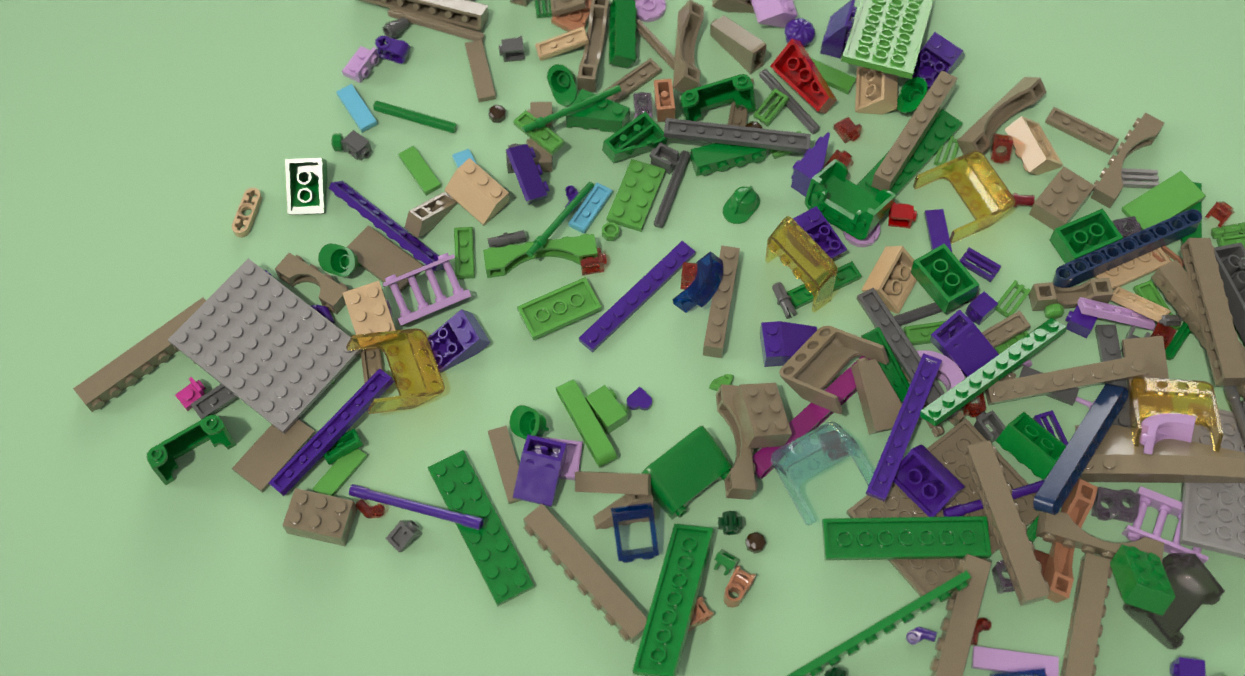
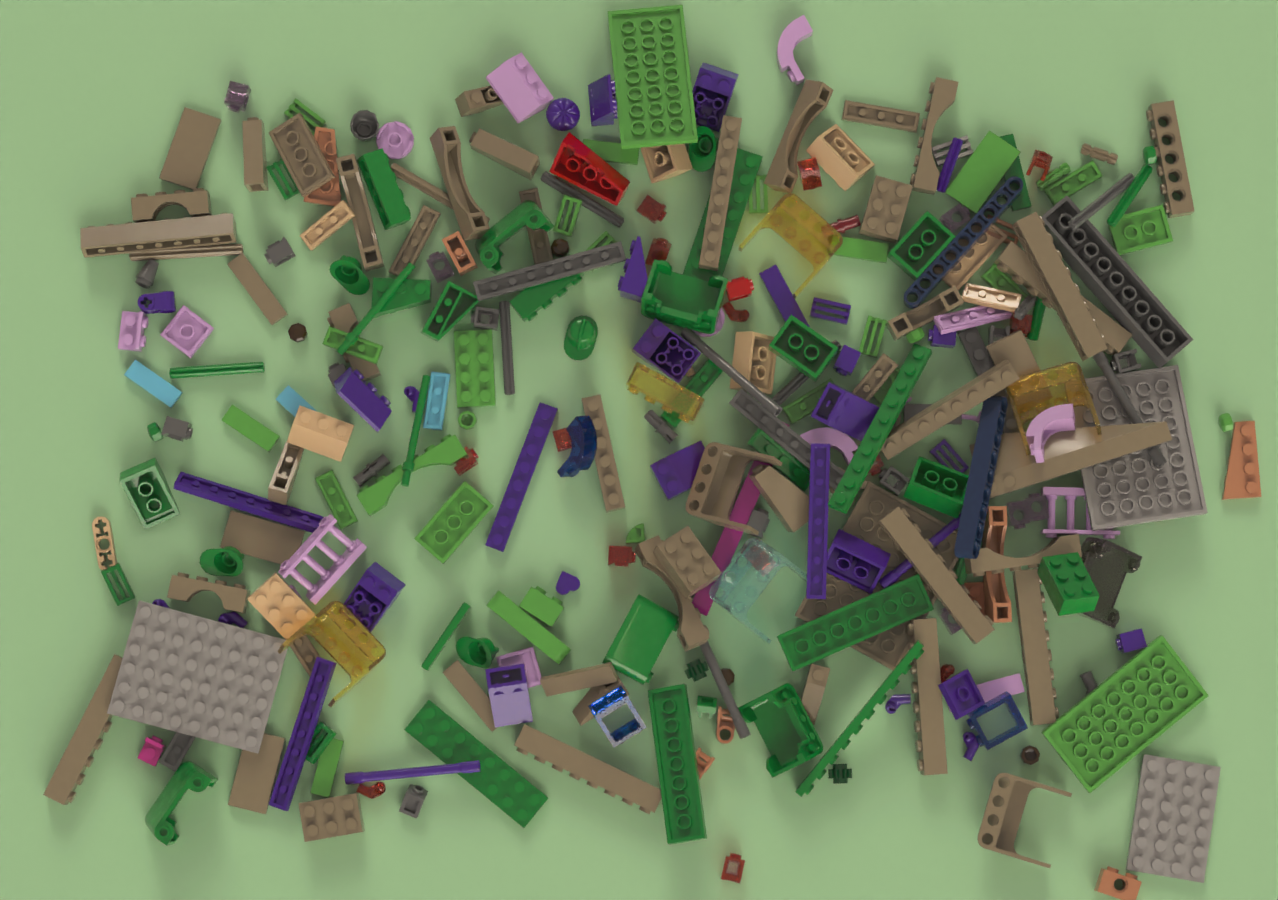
camera: 25 degrees left, 20 degrees up
(240, 230) = (111, 569): none -> green tile
(405, 81) = (187, 331): none -> lavender tile
(505, 400) = (438, 647): none -> green tile
(700, 393) = (621, 556): none -> clear red window
(753, 589) = (738, 721): none -> dark grey piece
(794, 609) = (783, 728): none -> green windscreen
(837, 591) = (814, 690): none -> dark tan slope
(846, 416) = (759, 521): none -> dark grey window
(890, 237) = (735, 315): none -> clear red arm
(894, 302) = (770, 405): none -> dark grey piece
(992, 649) = (961, 694): none -> dark purple plate
(1024, 43) = (793, 34): none -> lavender arch
(1027, 226) = (863, 250): none -> bright green tile
(1133, 185) = (949, 164): none -> dark purple axle

